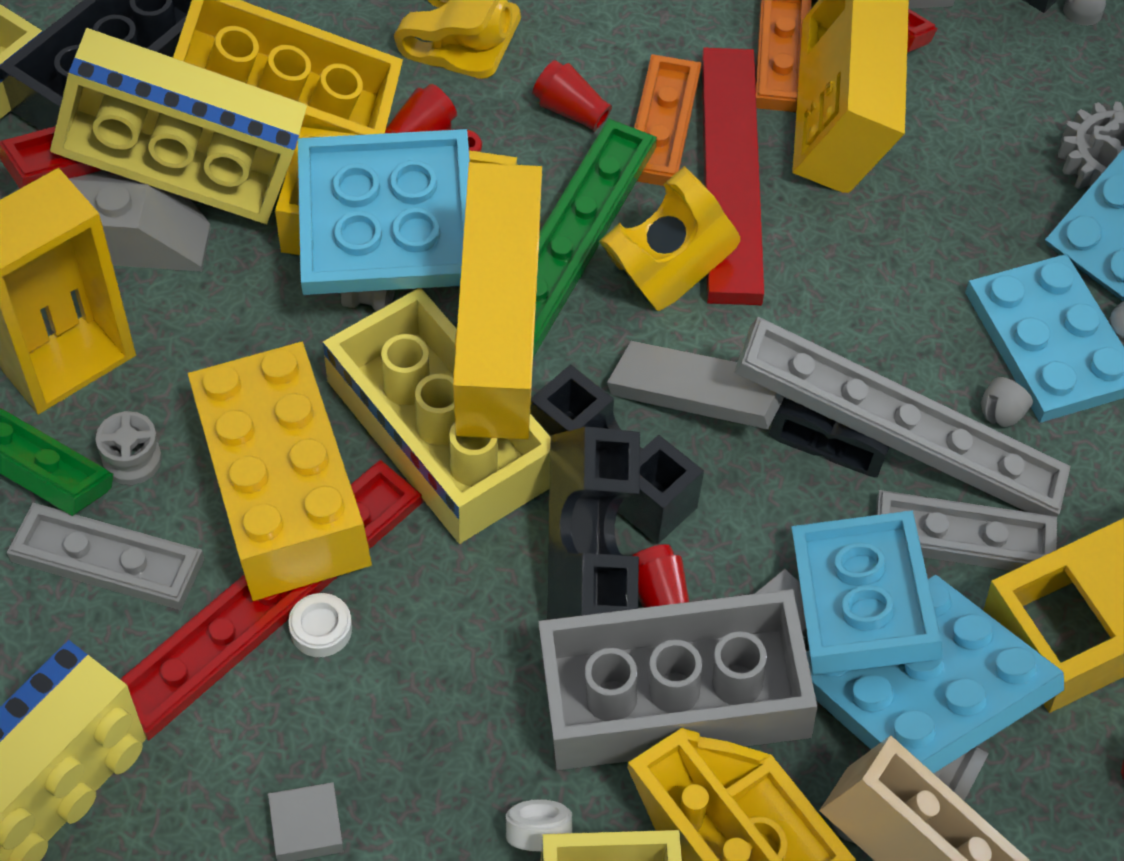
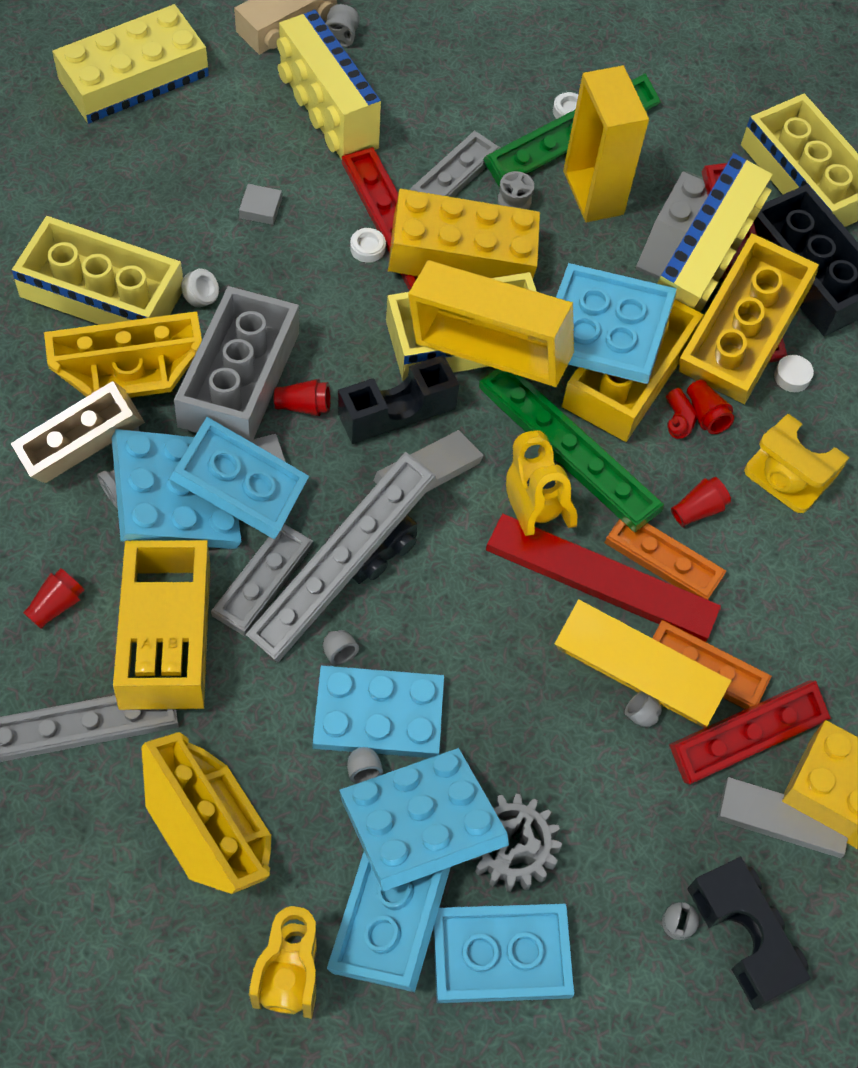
camera: 110 degrees right, 5 degrees up
(588, 482) = (356, 358): black arch -> none

